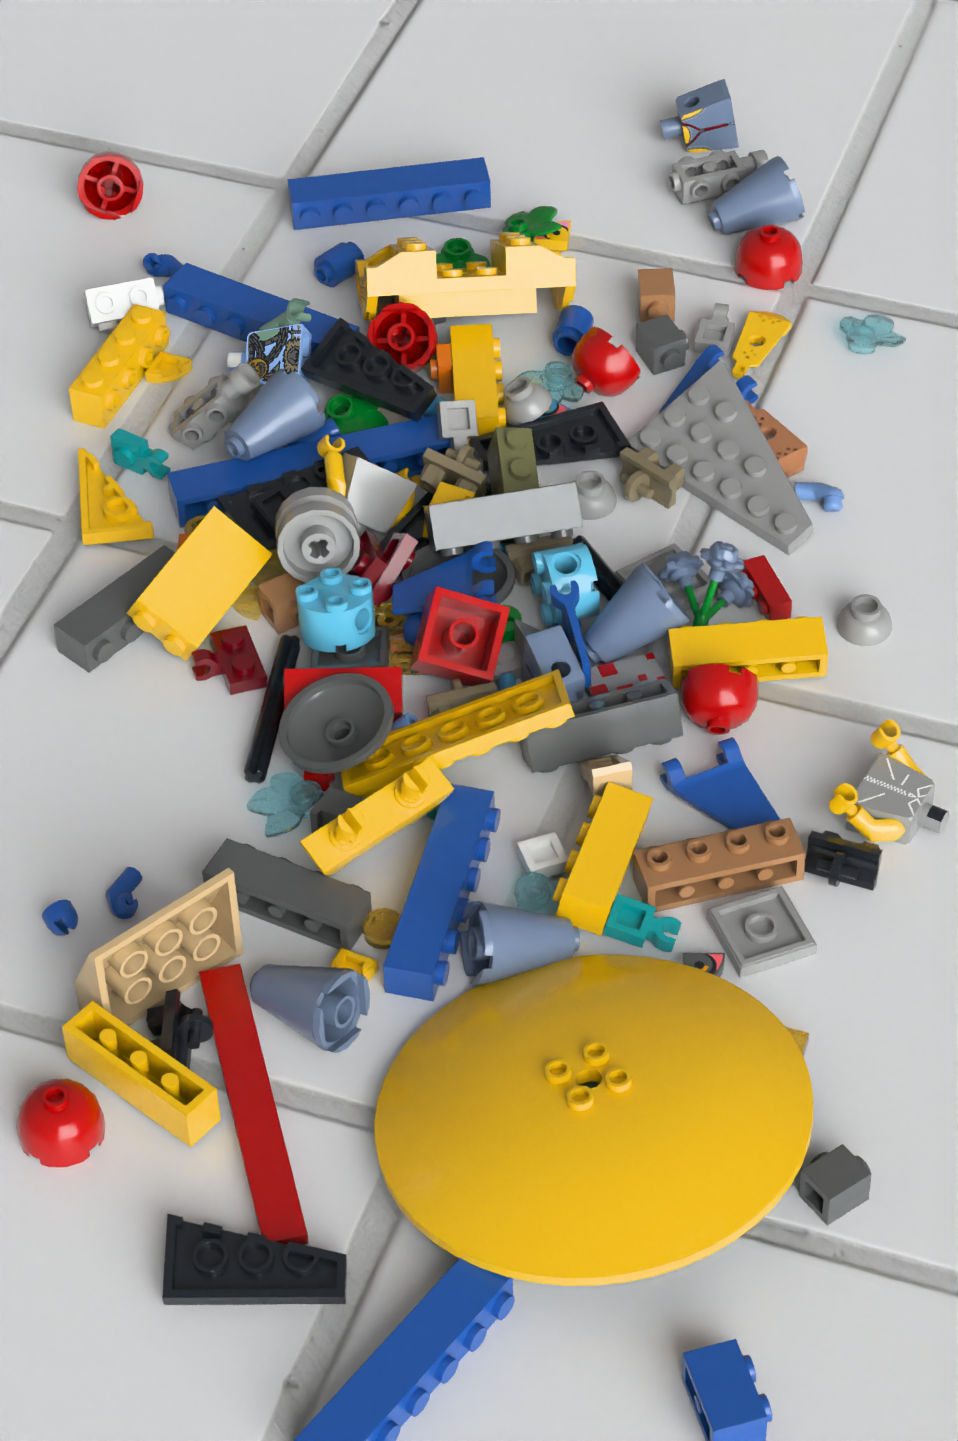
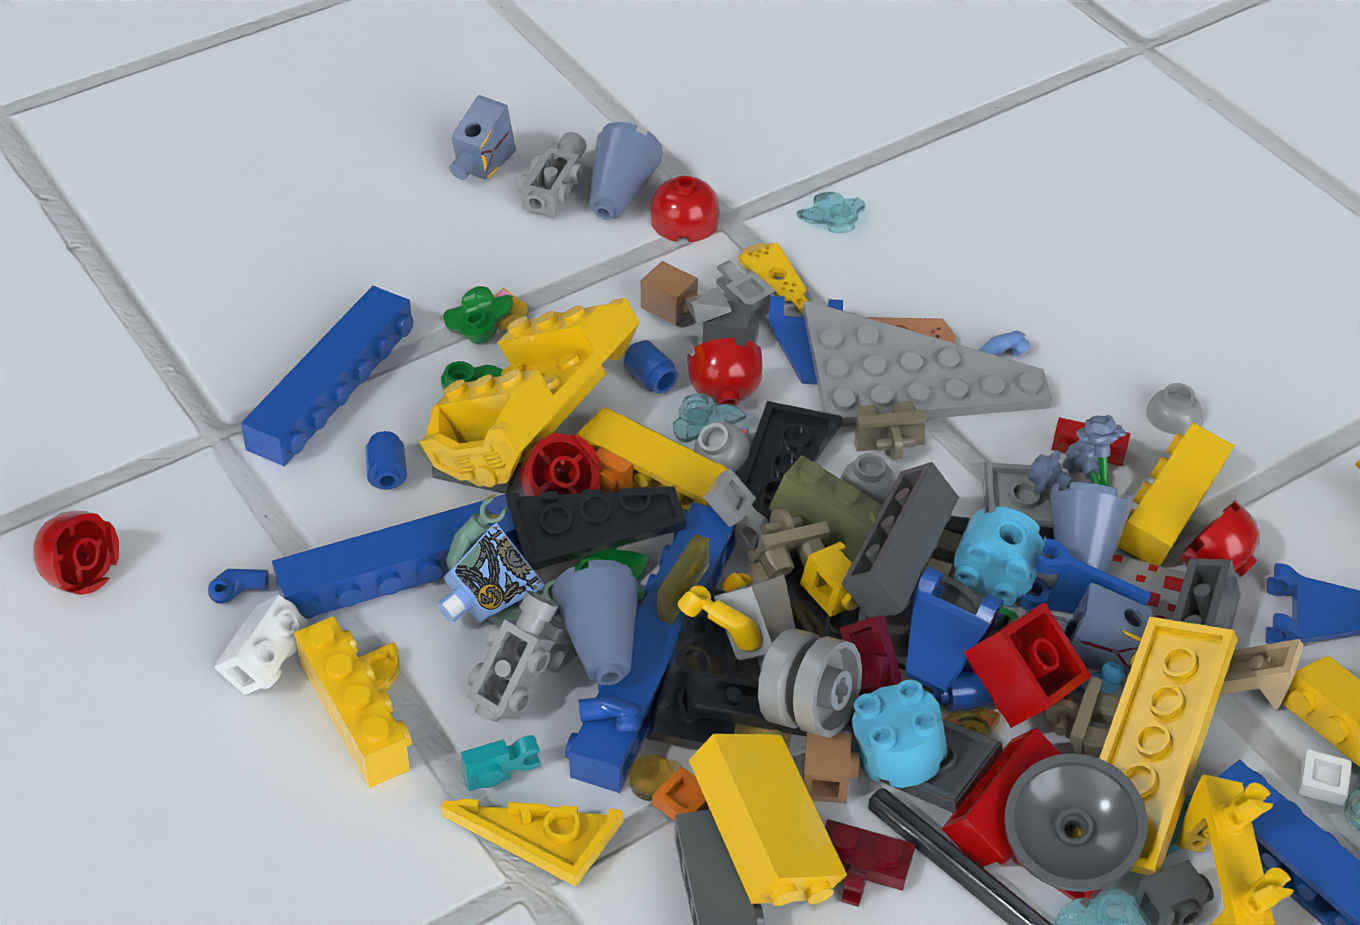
camera: 55 degrees left, 0 degrees up
(215, 468) = (611, 707): none -> blue arm
(369, 434) = (682, 577): none -> clear yellow tile
(649, 313) = (707, 305): none -> light grey slope

